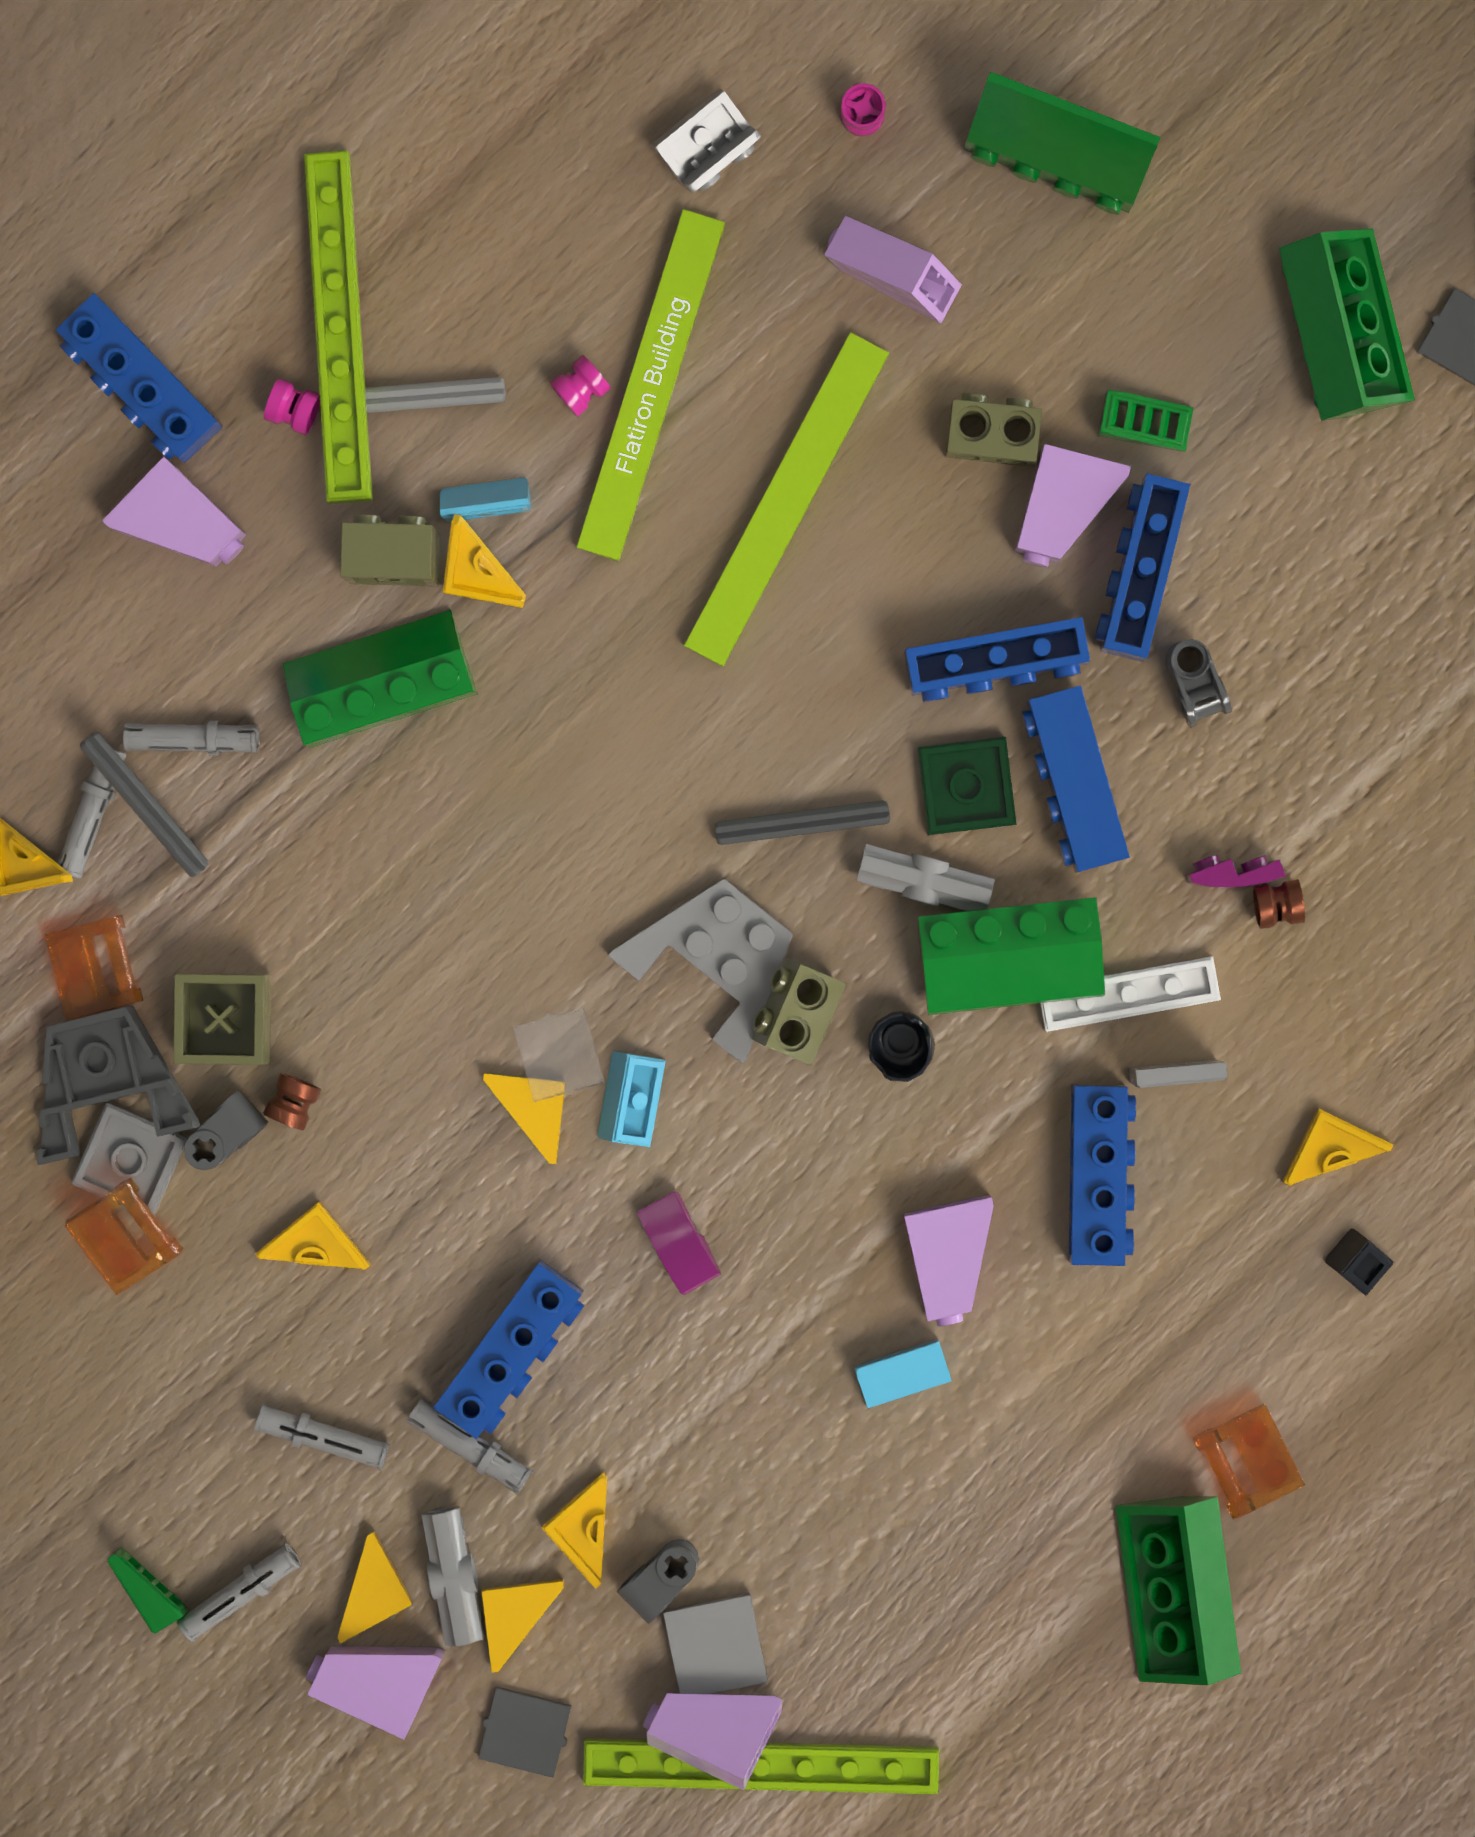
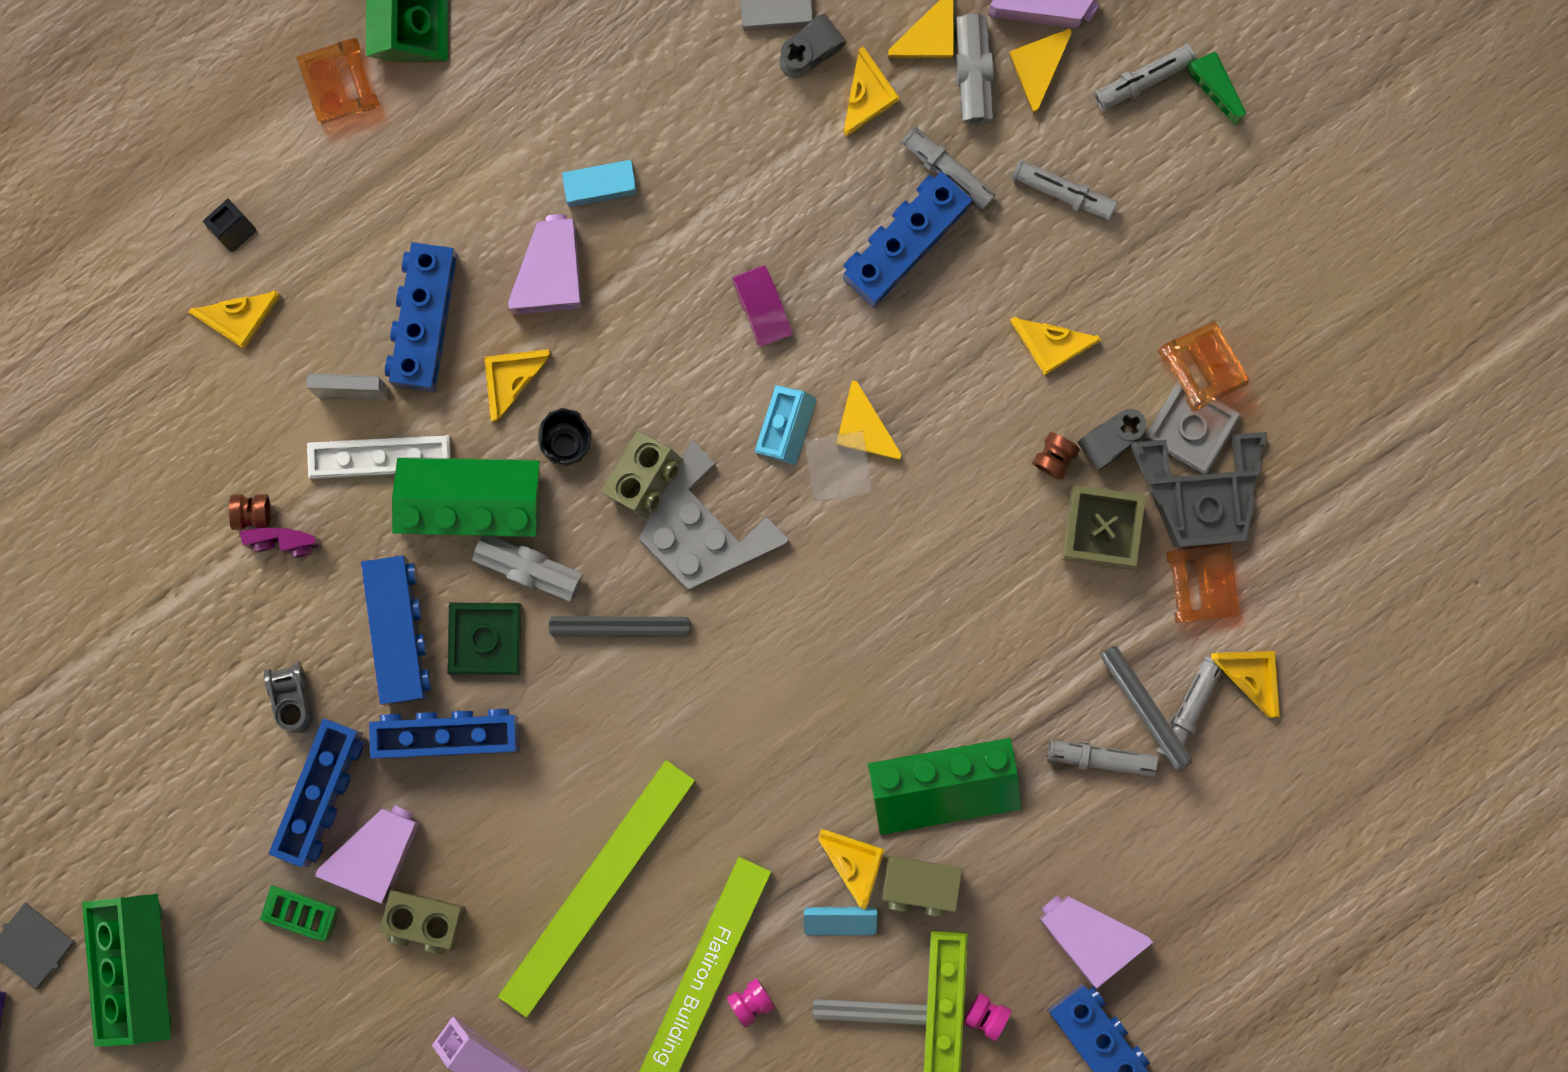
camera: 165 degrees left, 5 degrees down
(982, 1114) = (508, 376): none -> yellow tile

